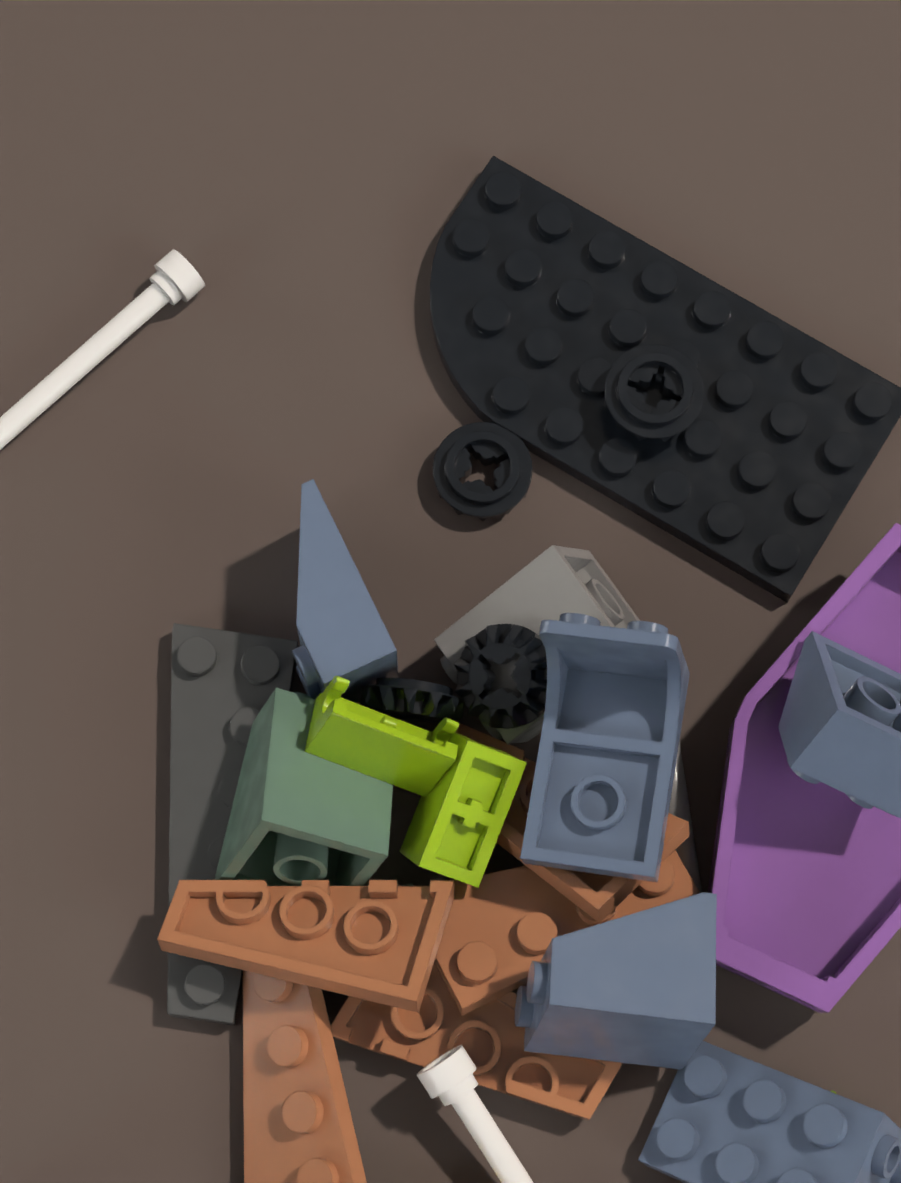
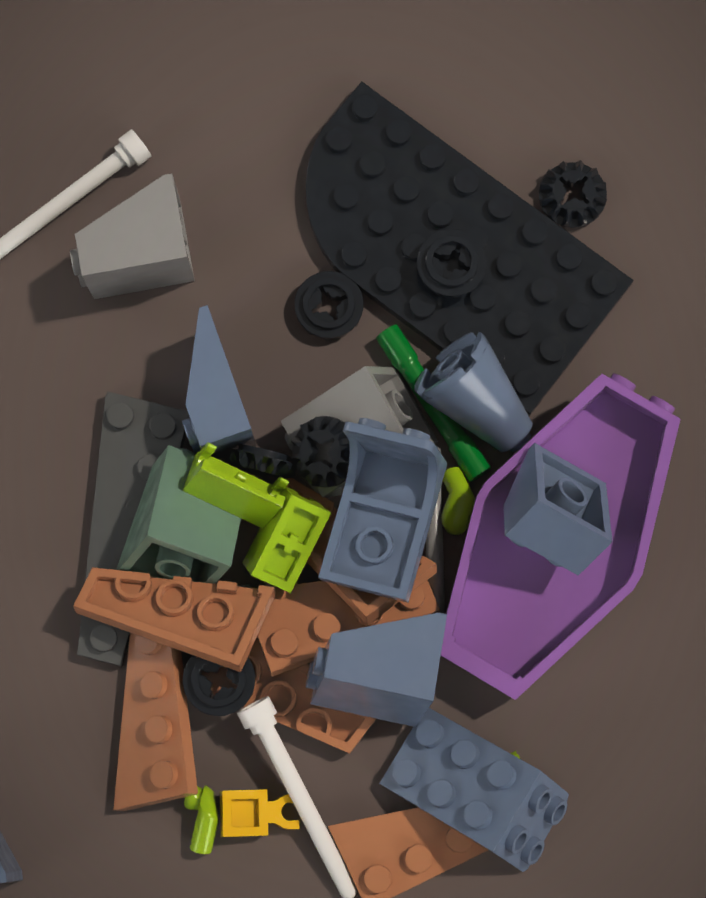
camera: 10 degrees right, 5 degrees up
(196, 408) = (135, 244): none -> light grey slope
(400, 1057) = (227, 699): none -> black gear
(603, 540) = (459, 443): none -> green piece
(705, 735) = (459, 503): none -> lime arm
(714, 572) = (476, 393): none -> sand blue cone
(816, 309) = (573, 212): none -> black gear

